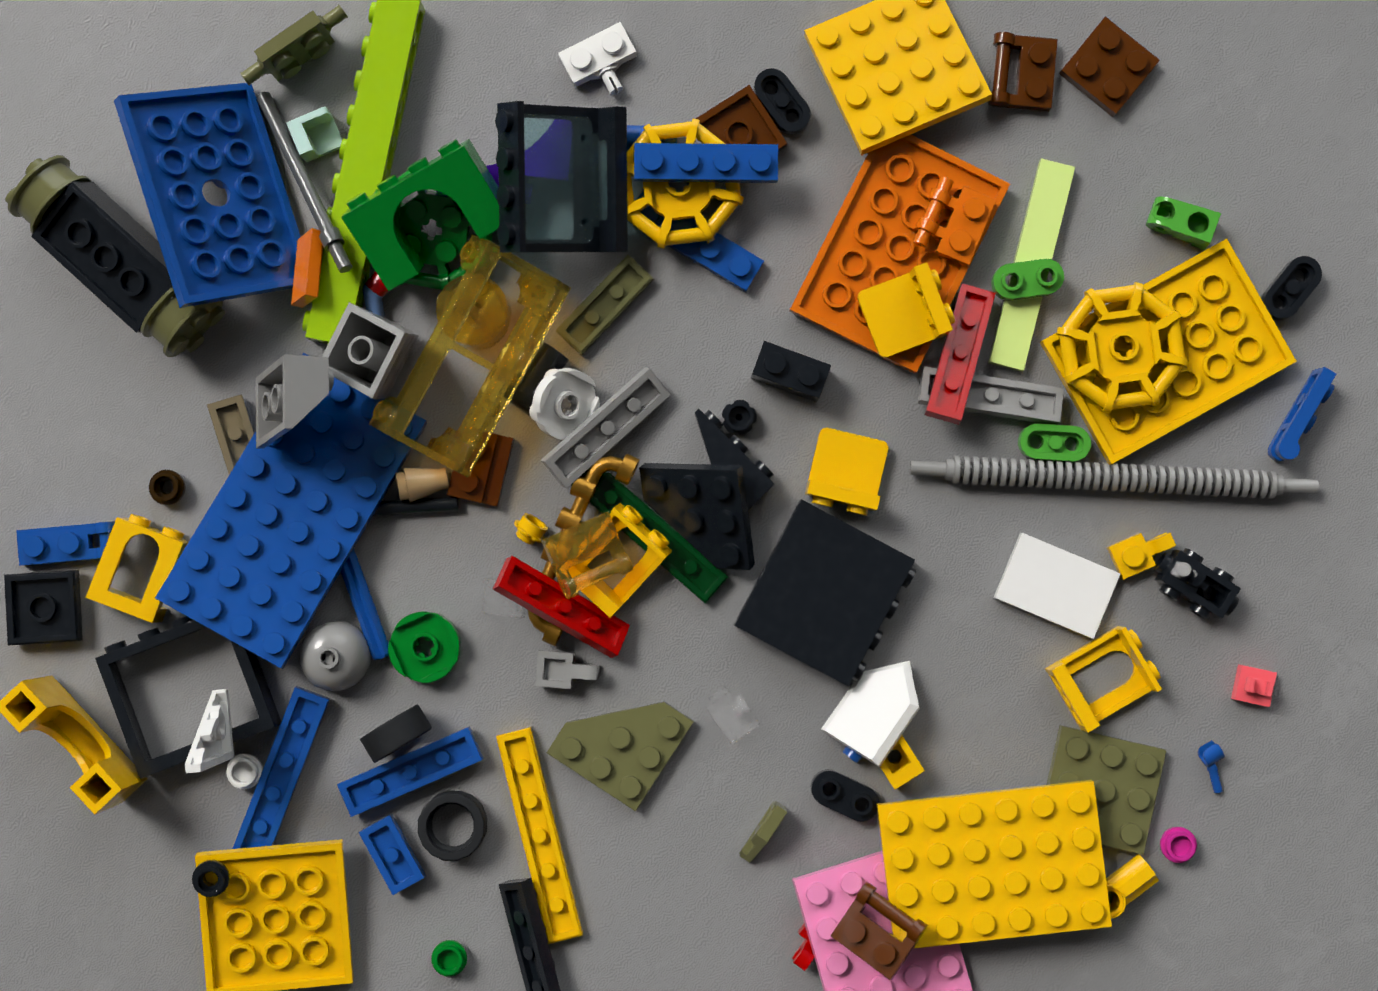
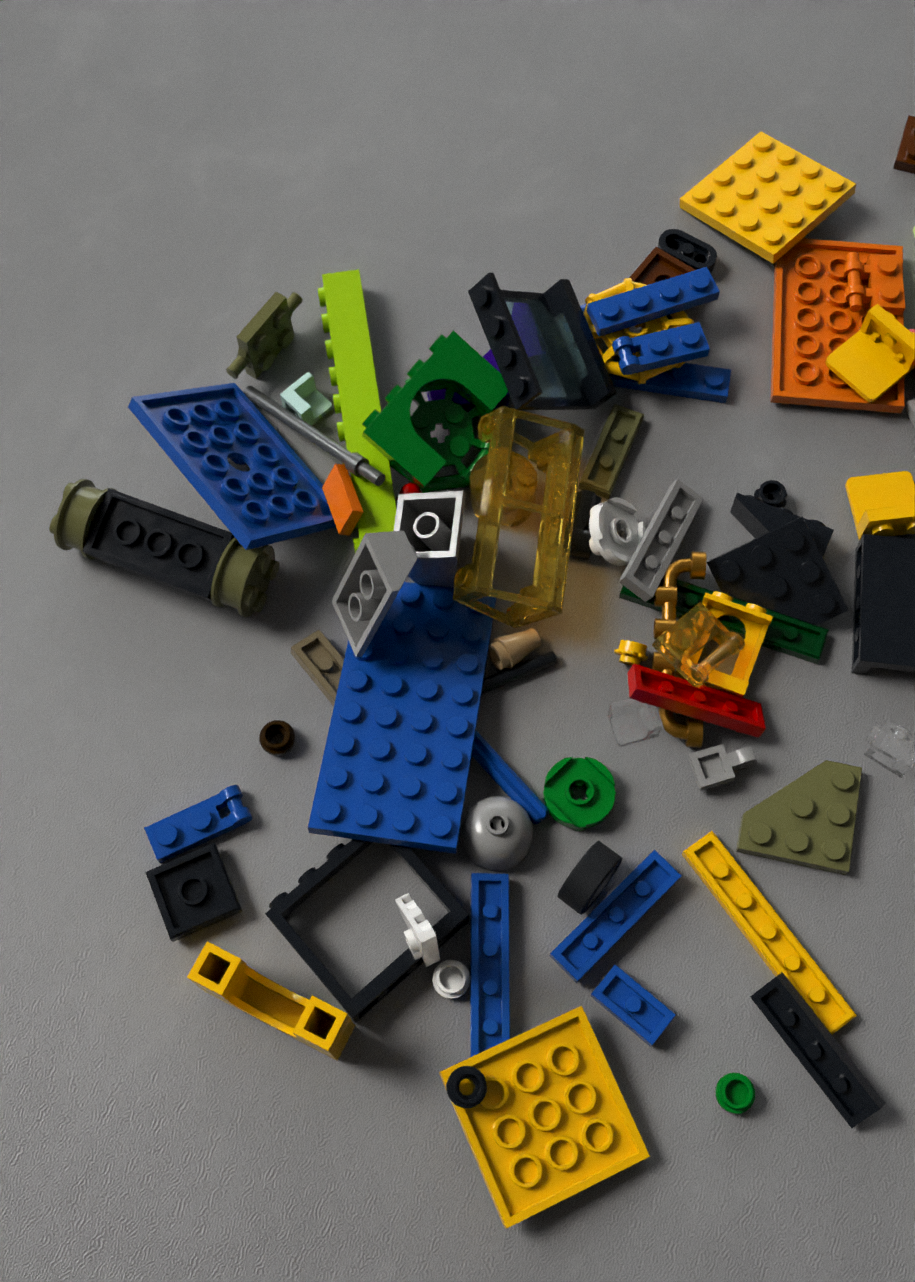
camera: 20 degrees left, 20 degrees down
(170, 548) = (276, 855): yellow panel -> none
(433, 845) = (700, 932): black tyre -> none
(488, 474) = (569, 629): reddish brown plate -> none
(599, 57) = (524, 269): white plate -> none
(689, 222) = (661, 348): none -> blue plate
(790, 371) = (798, 442): black brick -> none
(1034, 72) = (874, 170): reddish brown plate -> none

